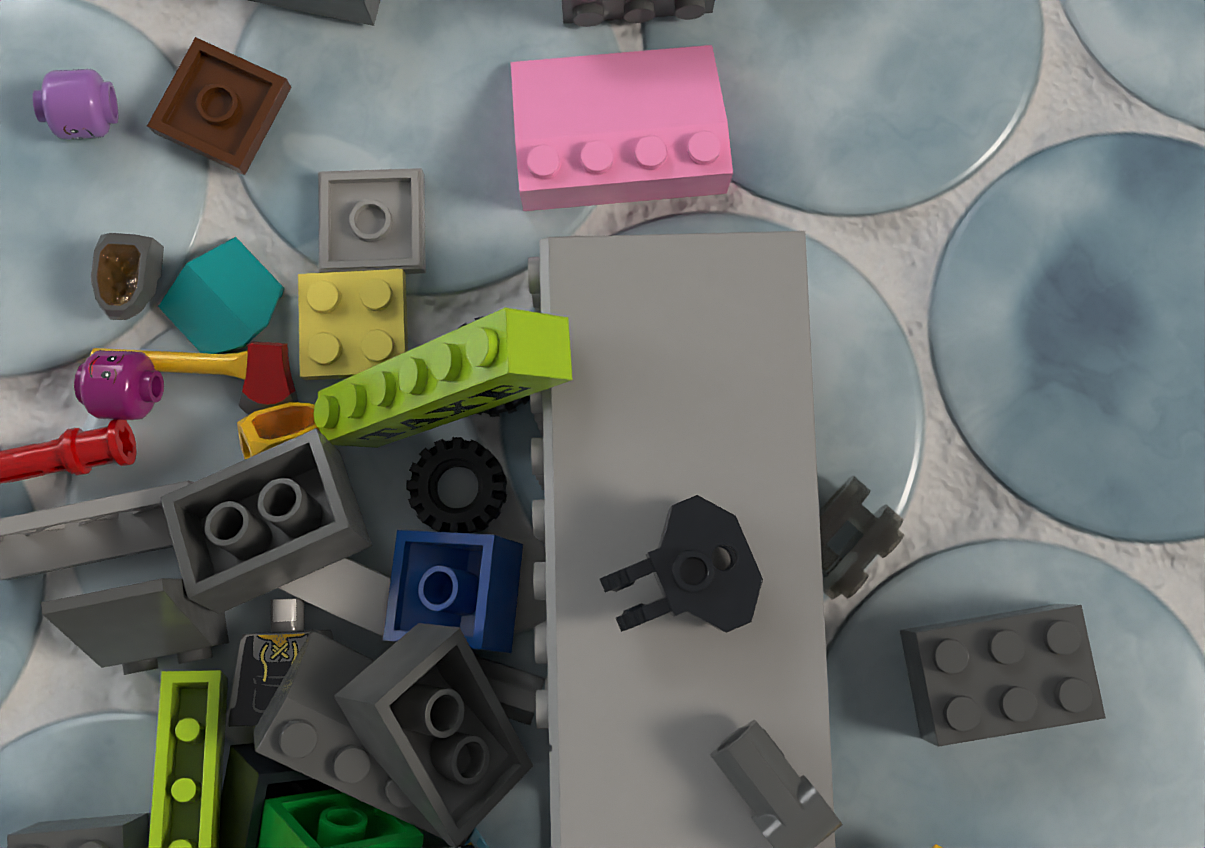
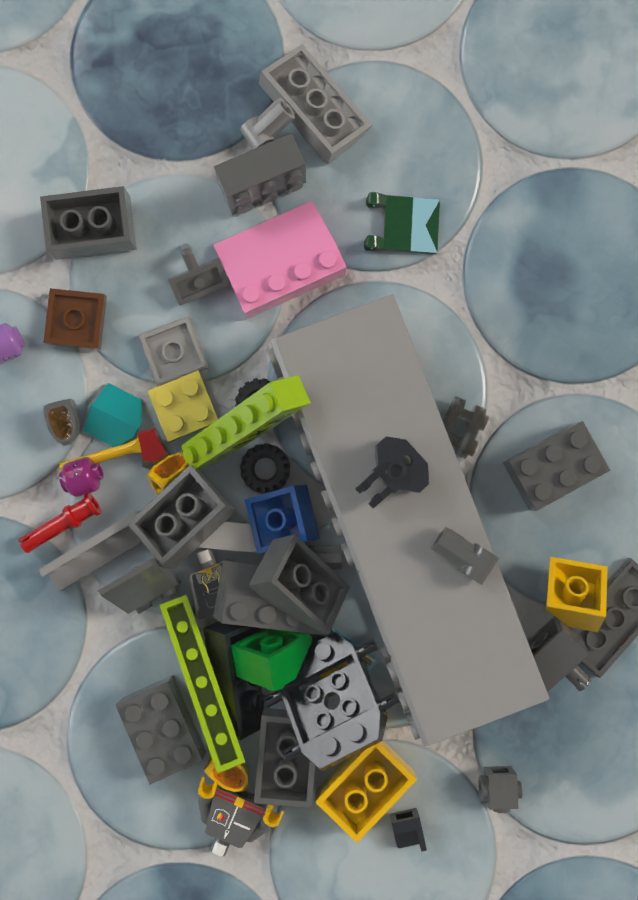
camera: 20 degrees left, 5 degrees up
(460, 110) = (197, 279): none -> dark grey plate
(869, 142) = (409, 224): none -> dark green flag

